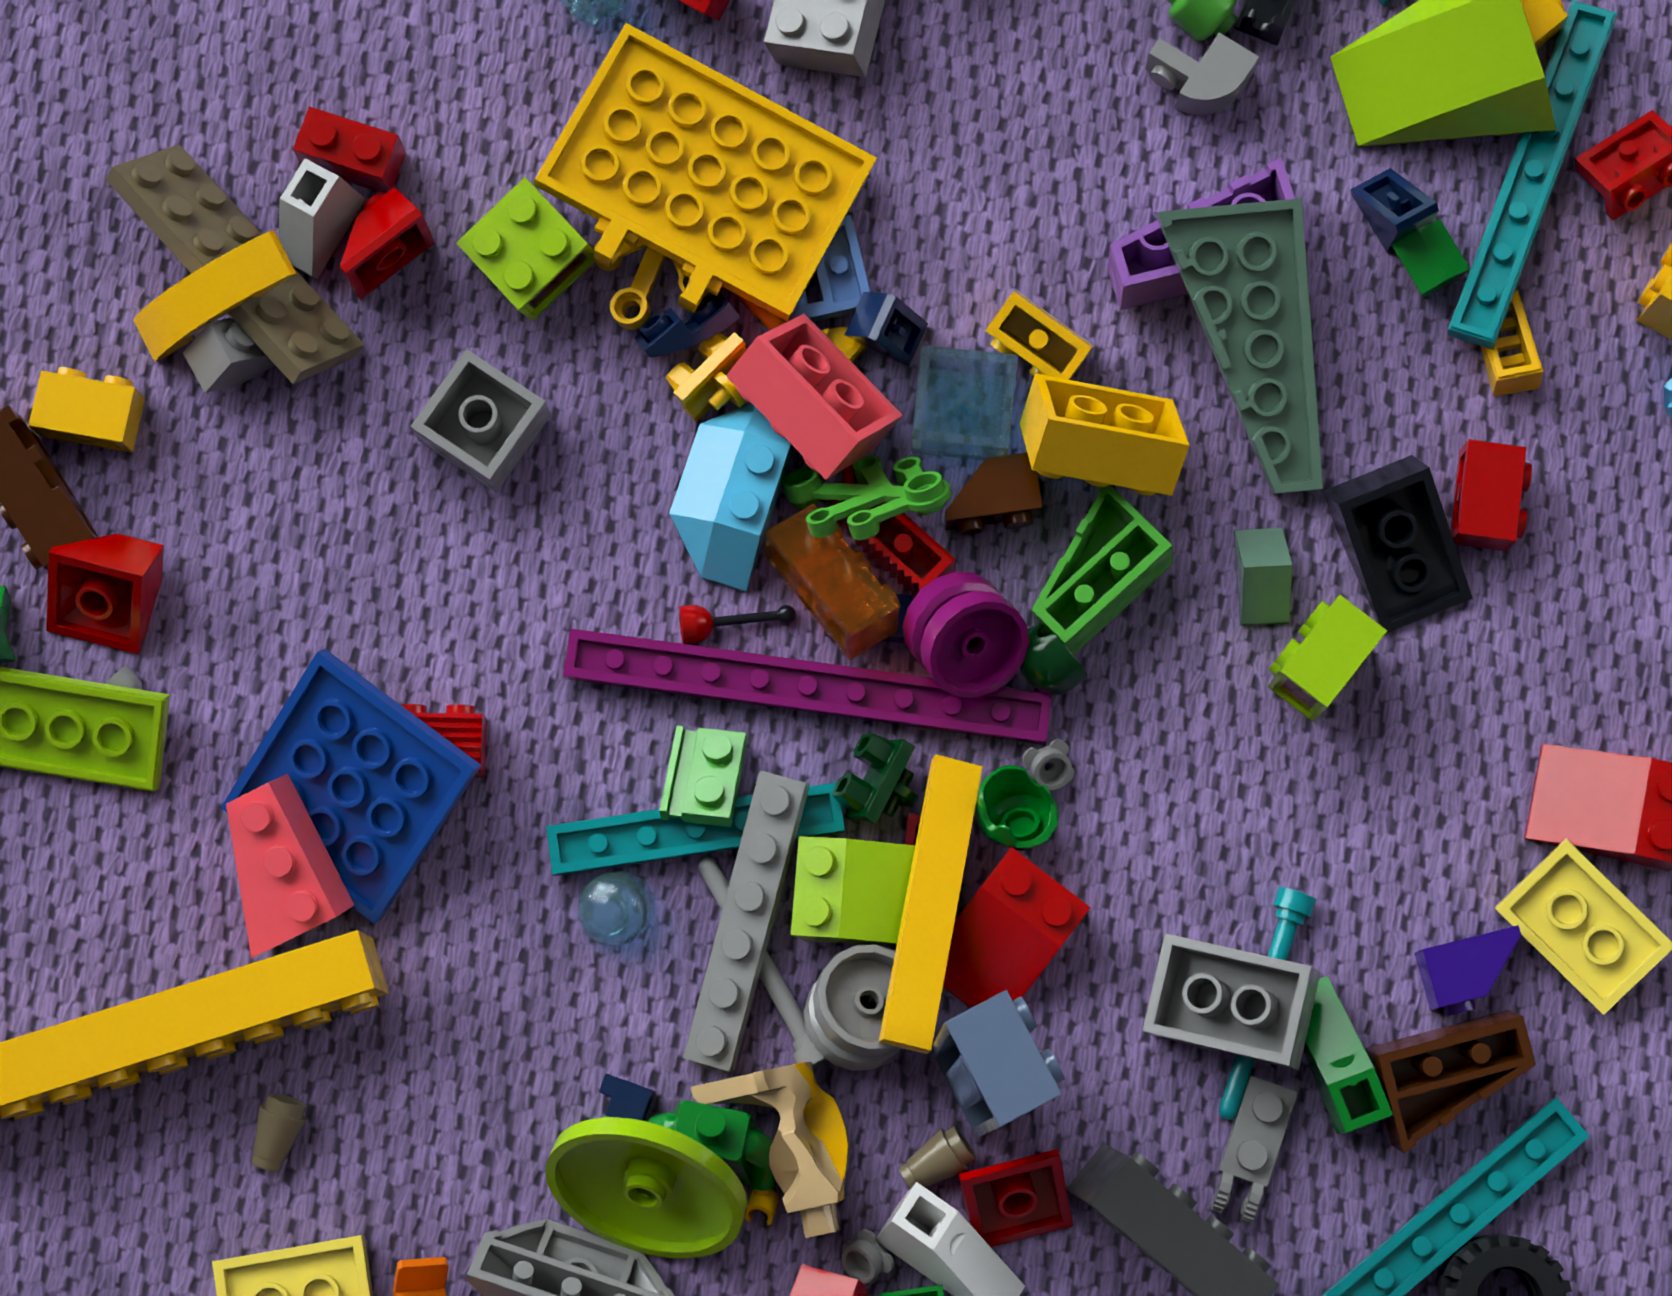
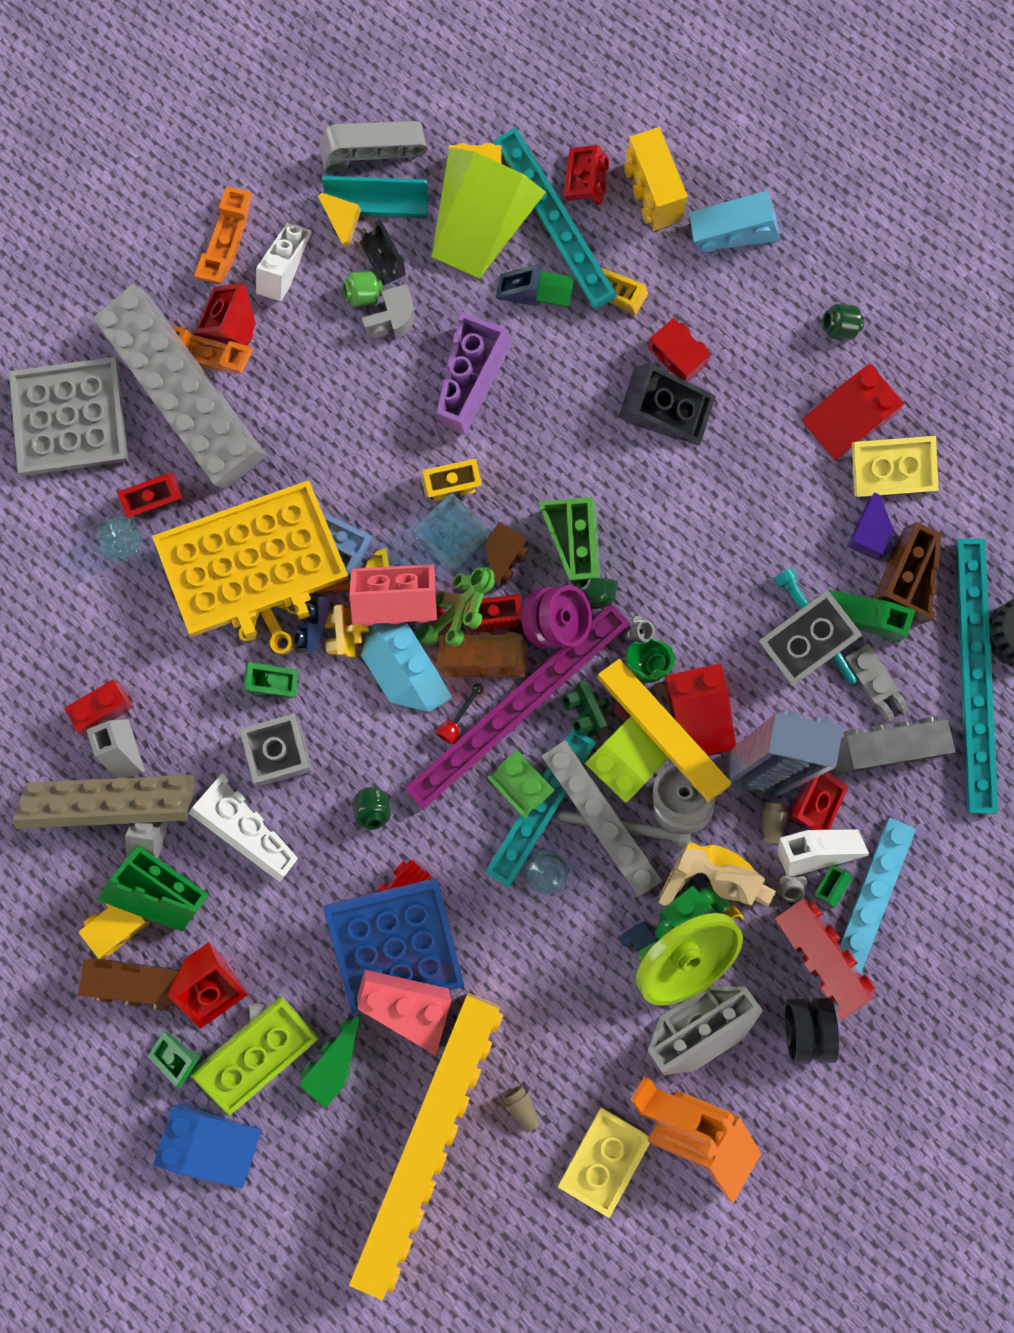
camera: 50 degrees left, 0 degrees up
(129, 842) = (332, 1071): none -> green slope
(167, 419) = (153, 891): none -> green wedge
(211, 293) = (113, 822): yellow slope -> none
(344, 446) = (235, 823): none -> white wing
(383, 241) = (154, 725): red slope -> none
(507, 607) = (371, 808): none -> dark green head
(528, 249) = (215, 664): lime piece -> none
(566, 335) = (270, 680): none -> green slope
(887, 326) = (387, 538): dark blue slope -> none
(1103, 435) = (519, 485): yellow brick -> none
(1254, 305) = (514, 374): sand green wing -> none
(1263, 576) = (633, 472): sand green slope -> none
(1333, 649) = (693, 475): lime piece -> none

